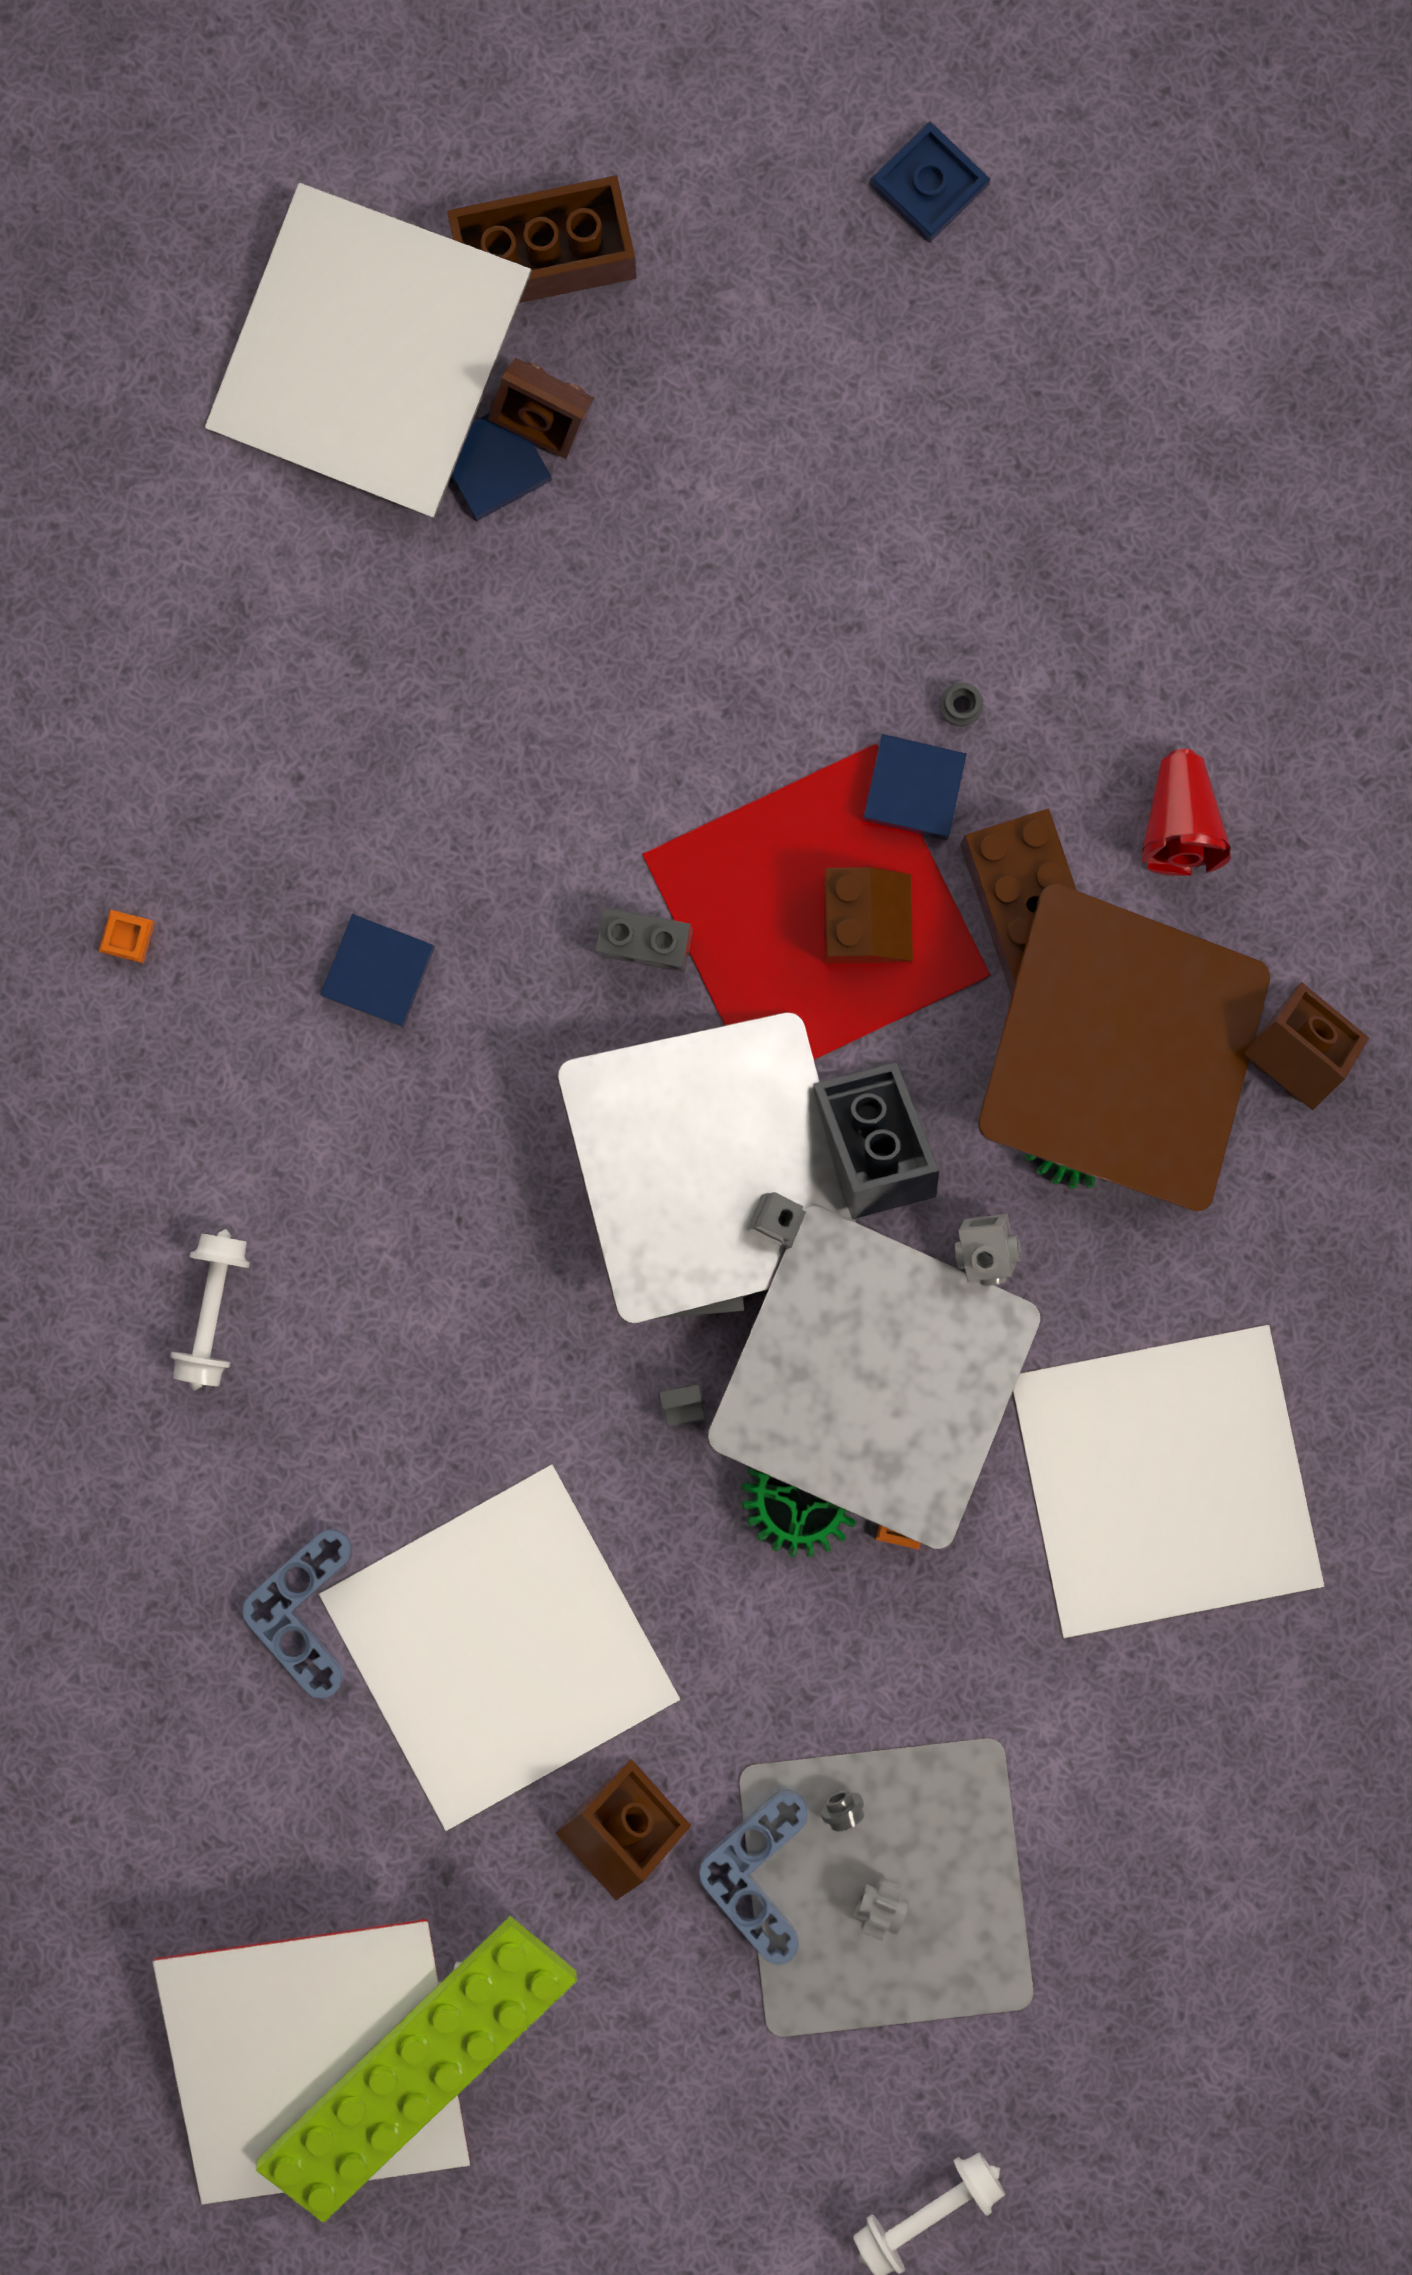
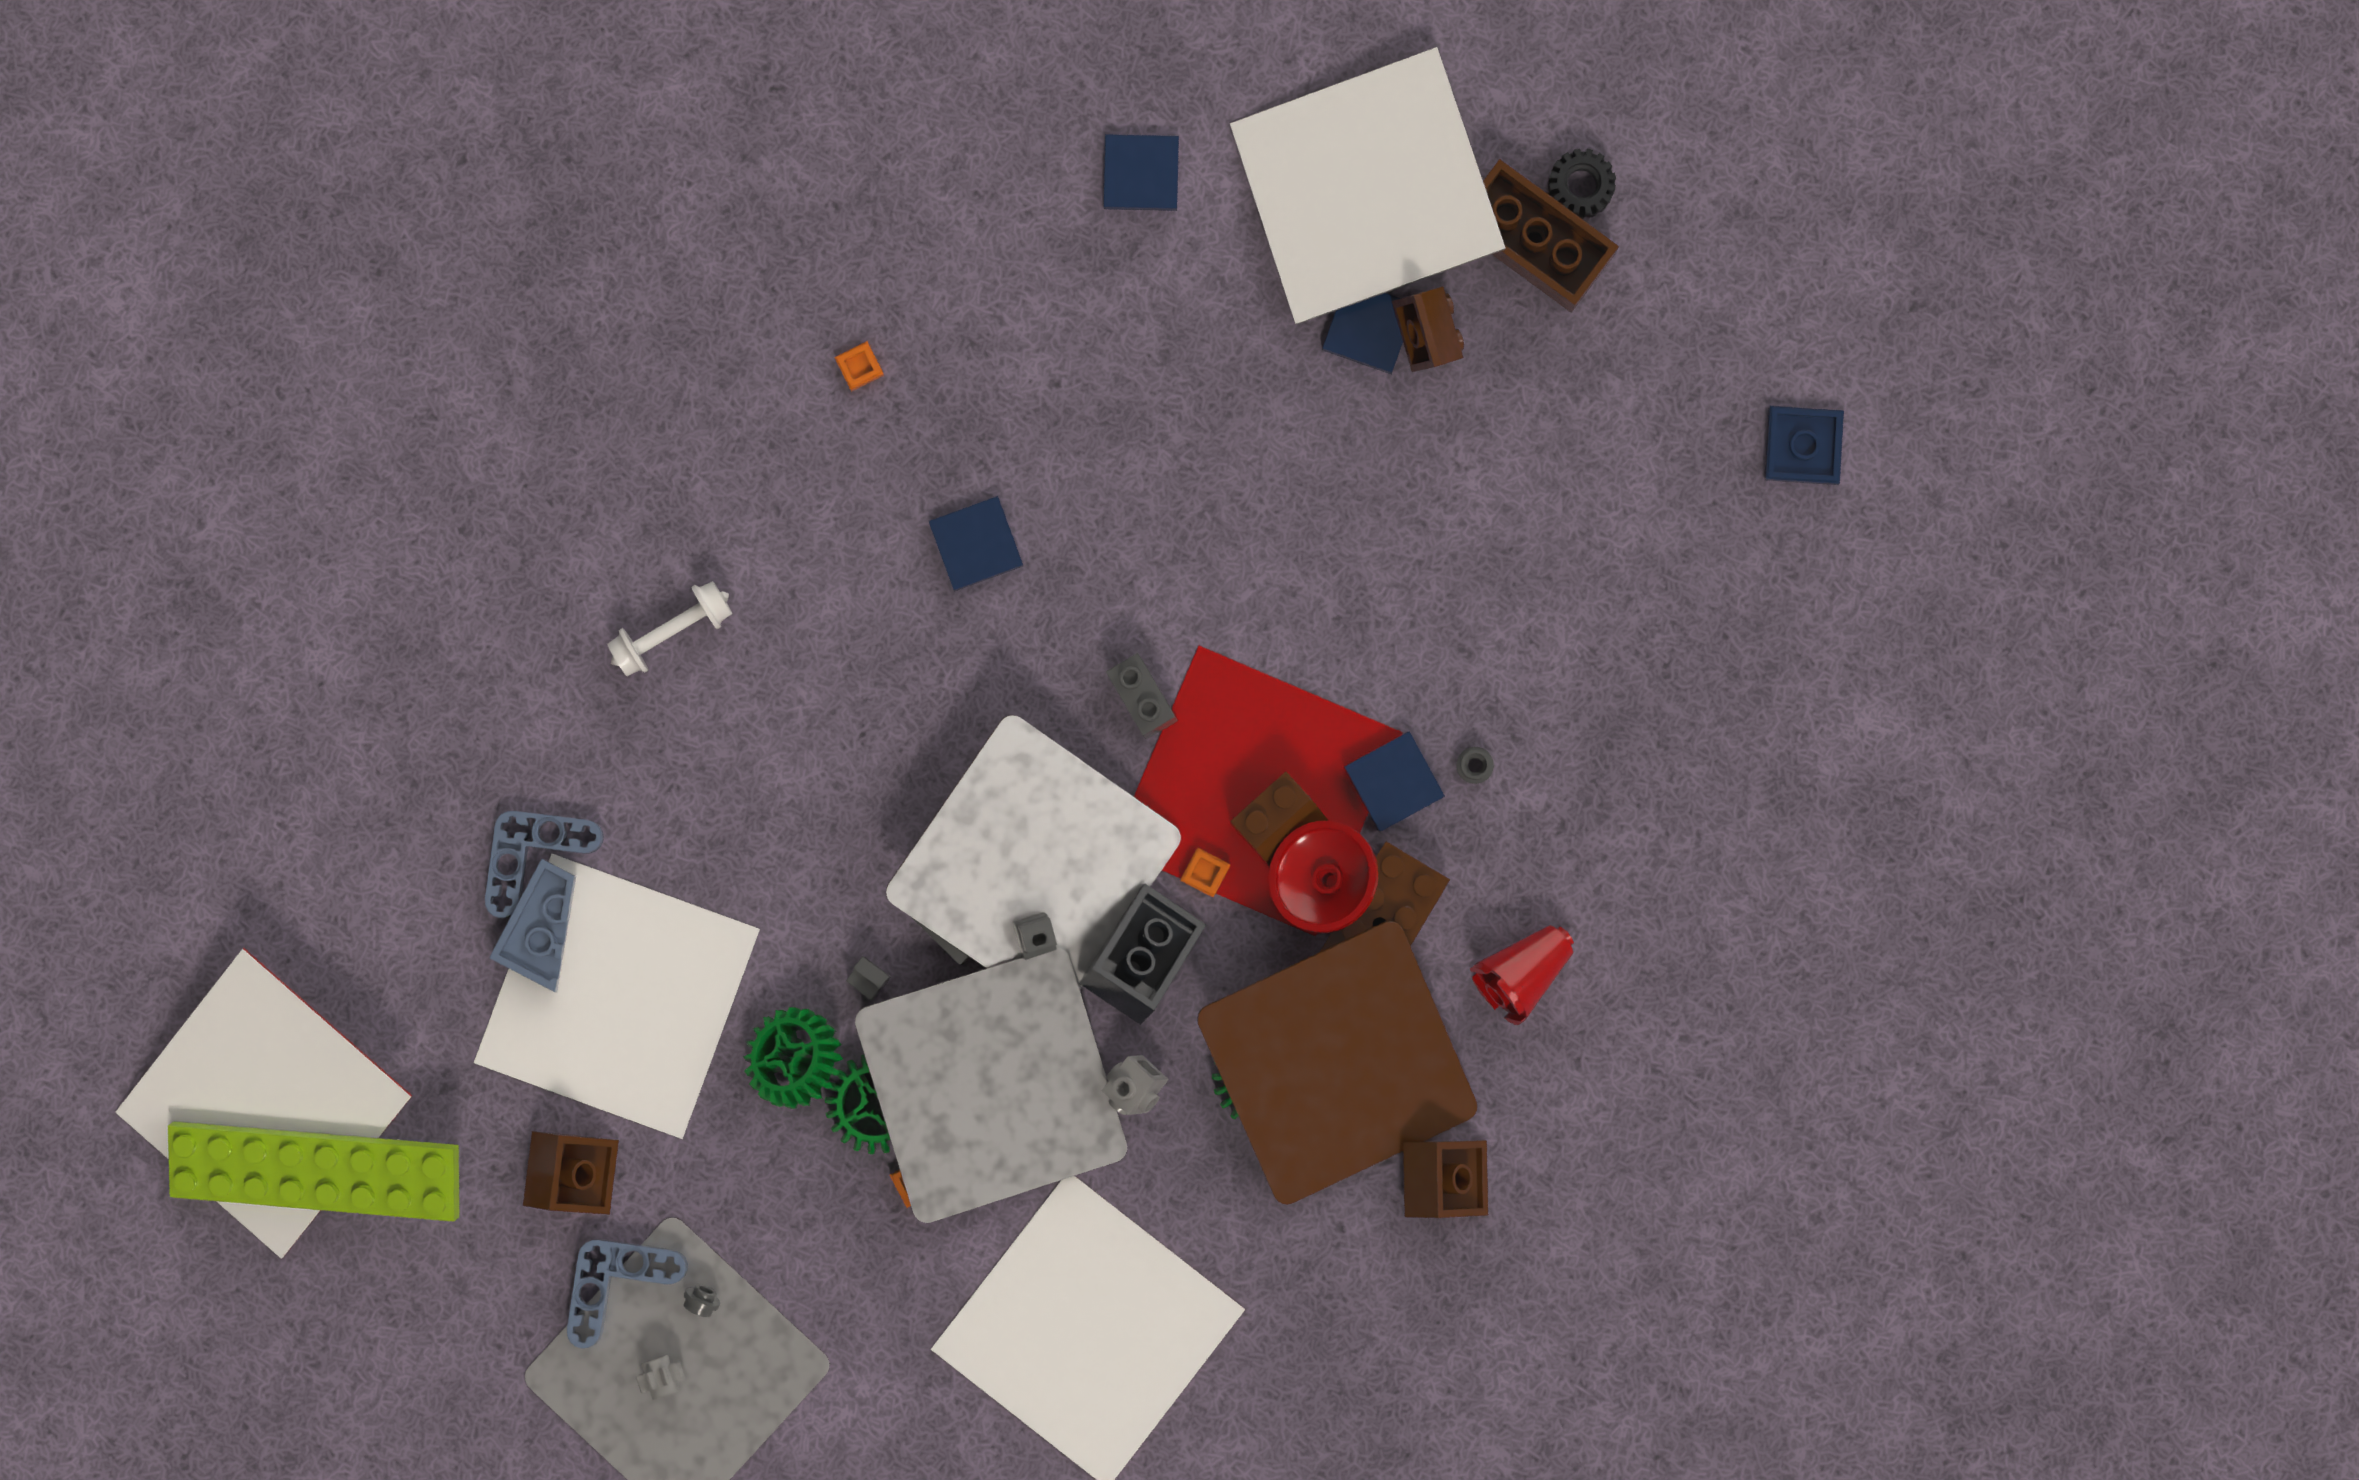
camera: 55 degrees right, 0 degrees up
(178, 540) = (1141, 172): none -> dark blue tile
(375, 1665) = (538, 927): none -> sand blue wing
(525, 146) = (1597, 168): none -> black tyre
(674, 1544) = (810, 1063): none -> green gear
(850, 1022) = (1205, 872): none -> orange tile
(921, 907) = (1301, 872): none -> red dish

